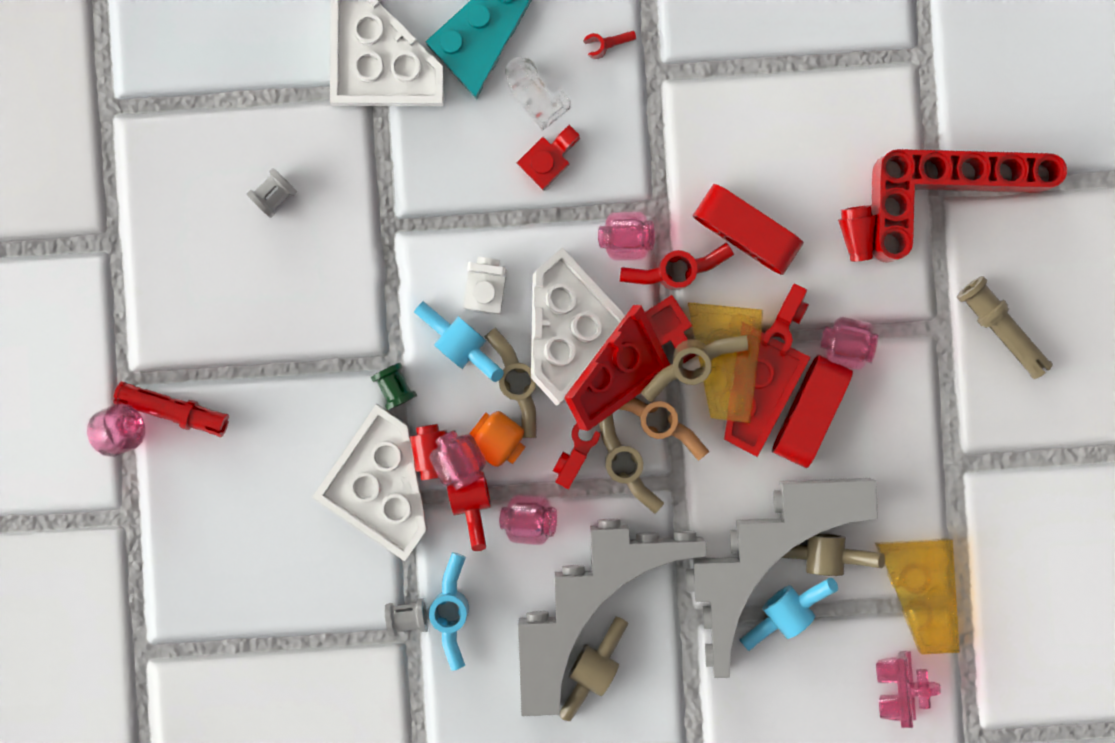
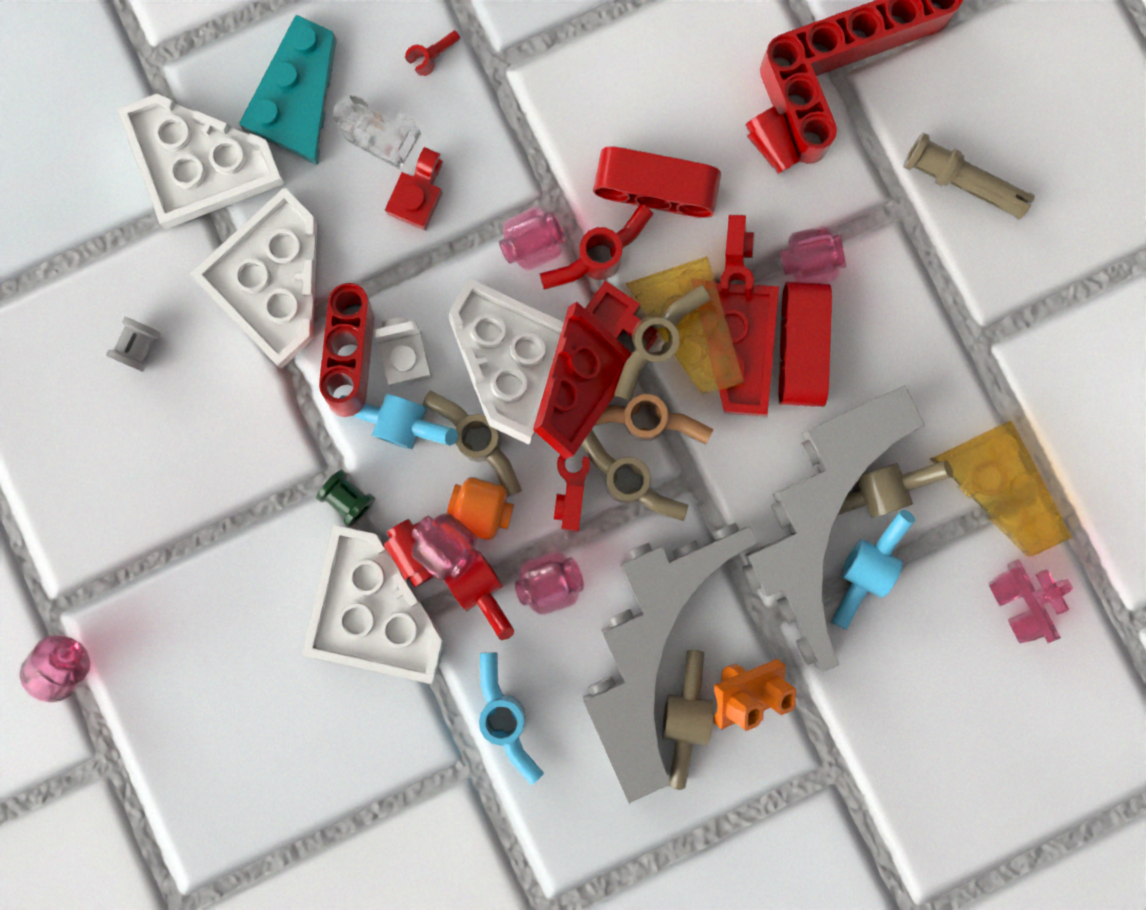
camera: 25 degrees left, 5 degrees down
(184, 413) = (125, 620): red pin -> none
(400, 180) = (268, 277): none -> white plate
(406, 617) = (458, 746): light grey bush -> none
(441, 251) = (343, 331): none -> red beam
(648, 670) = (747, 694): none -> orange hips

